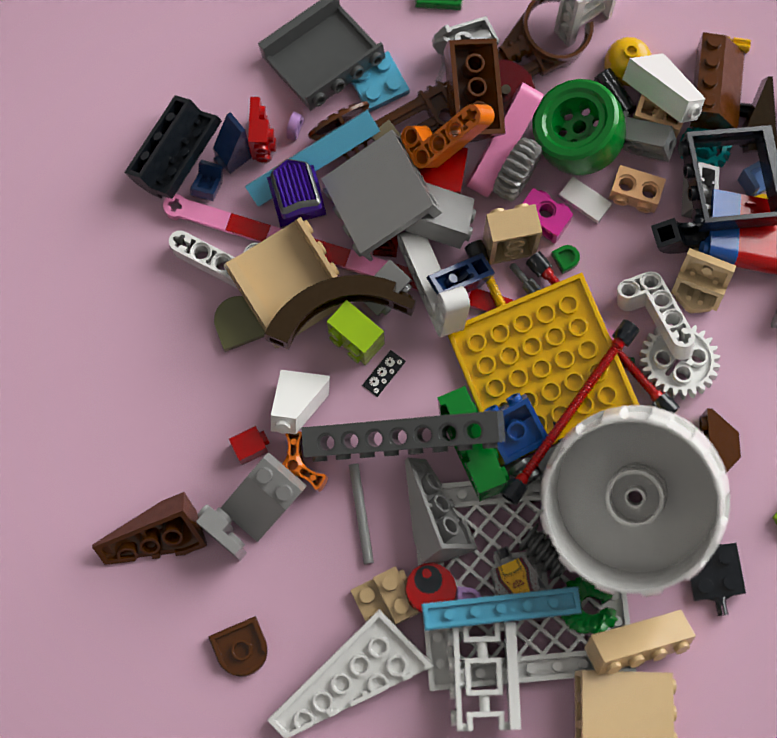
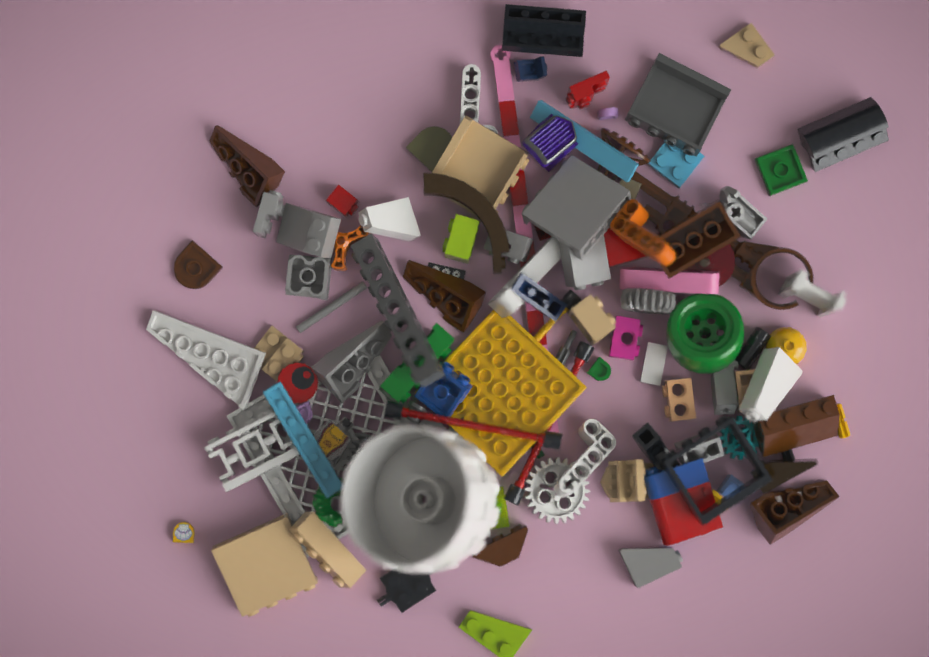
camera: 65 degrees right, 10 degrees up
(231, 145) = (563, 74): dark blue slope -> none
(315, 520) = (308, 276): none -> light grey piece
(409, 377) = (451, 295): none -> reddish brown wedge

